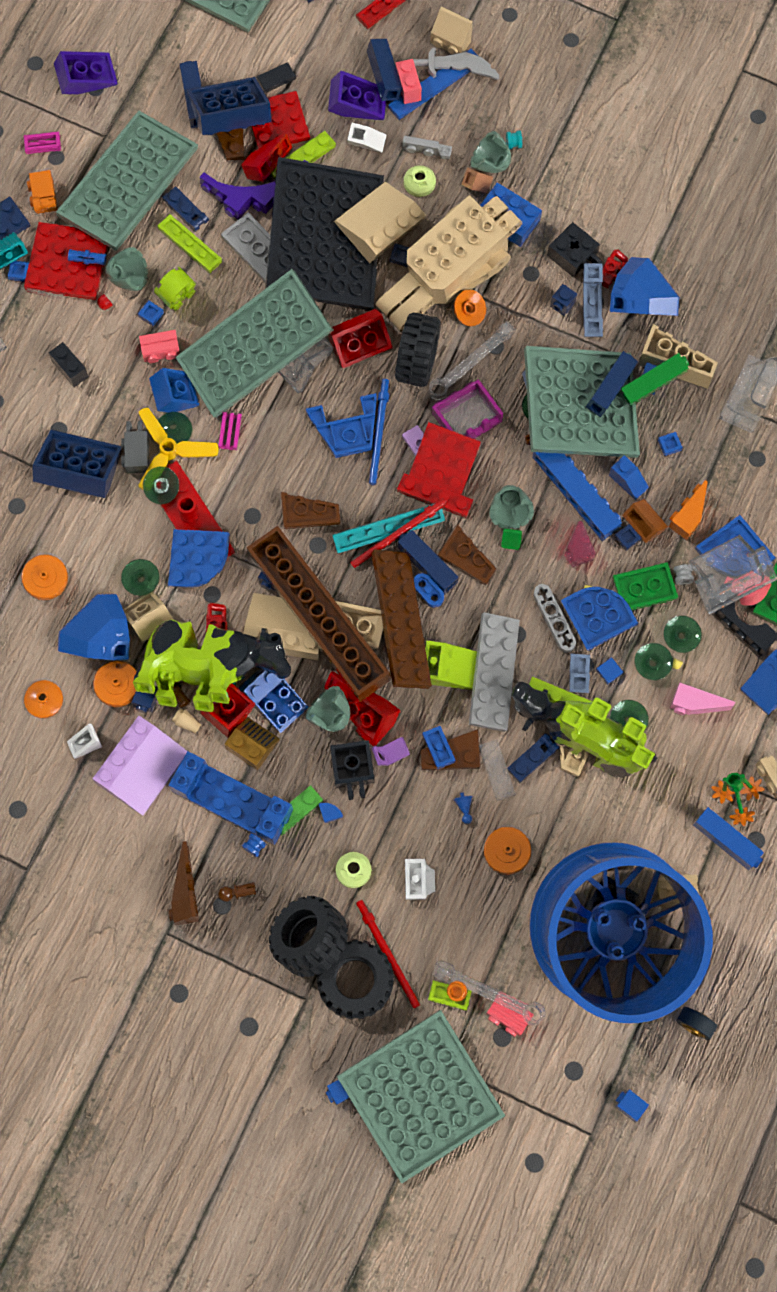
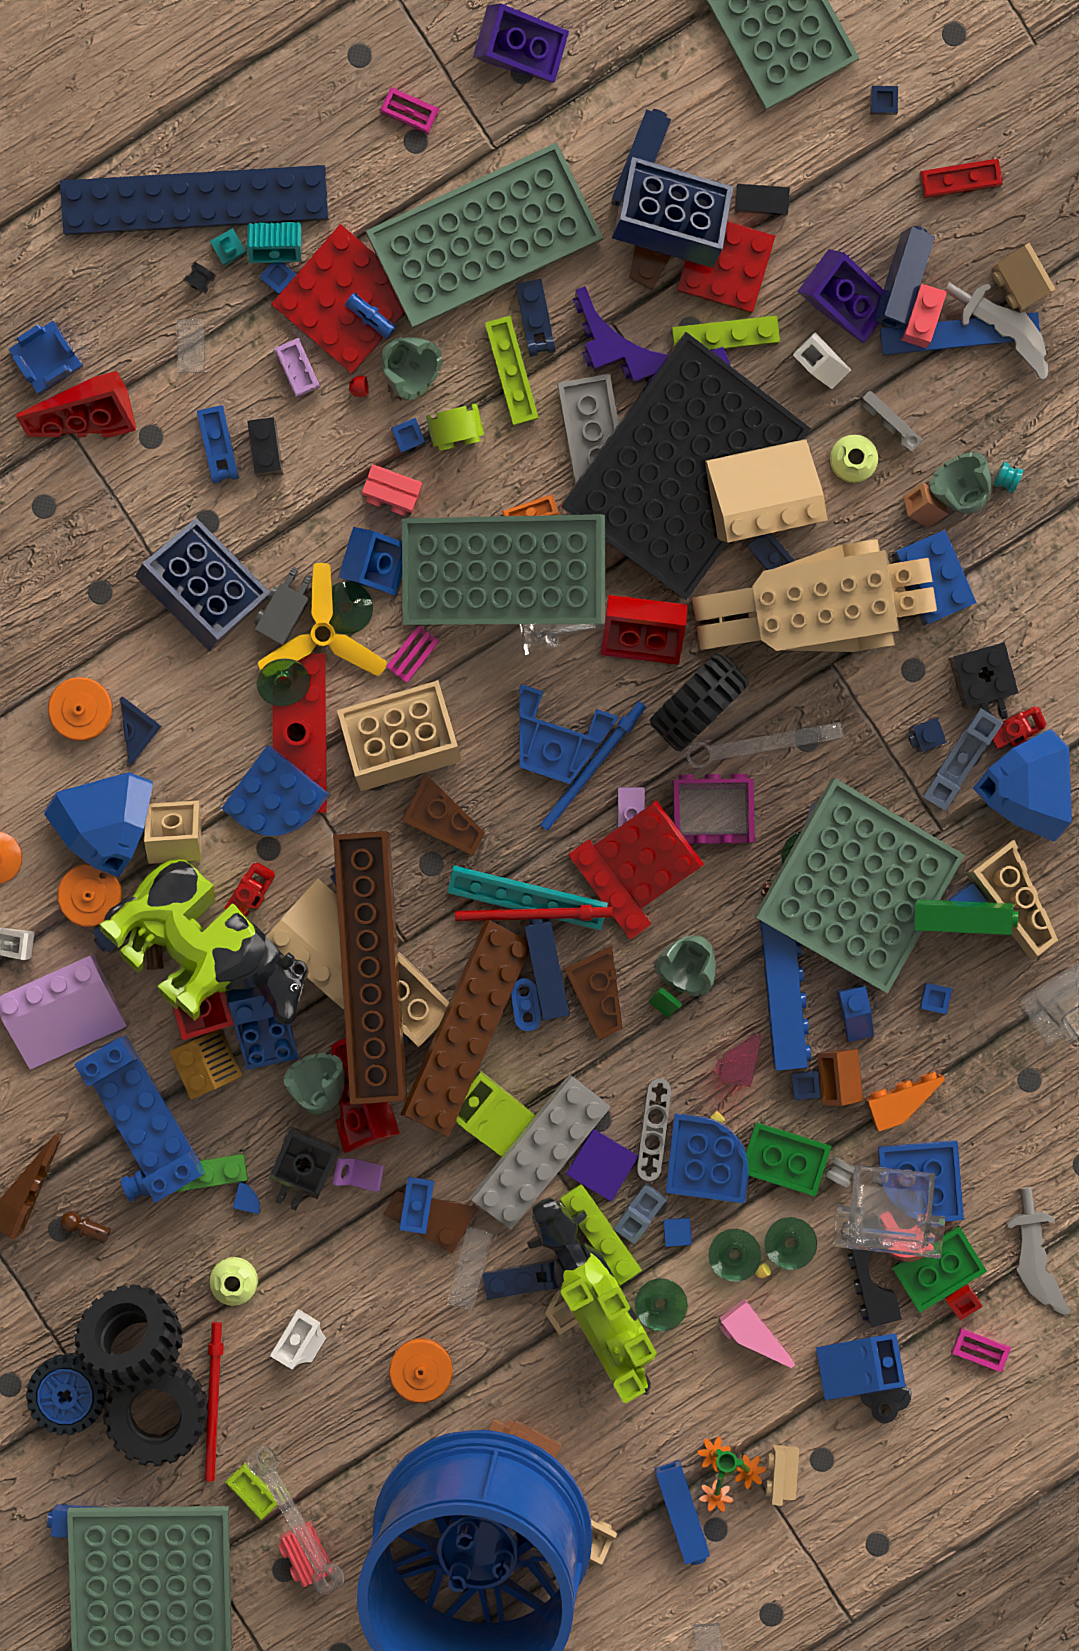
camera: 35 degrees right, 15 degrees up
(38, 380) = (217, 443): none -> blue plate
(43, 192) = (368, 186): orange hinge -> none
(61, 312) = (297, 367): none -> lavender plate
(88, 570) = (138, 729): none -> dark blue tile
(137, 569) = (179, 779): clear green dish -> none
(186, 721) = (144, 989): tan cone -> none
(252, 480) = (399, 736): none -> tan slope
(264, 160) = (676, 312): red slope -> none
(280, 994) = (46, 1393): none -> wheel
(457, 991) = (261, 1496): orange plate -> none
(464, 804) = (406, 1285): blue piece -> none
(476, 308) = (808, 682): orange dish -> none
(537, 658) = (602, 1164): none -> dark purple tile
(611, 384) = (910, 888): dark blue brick -> none

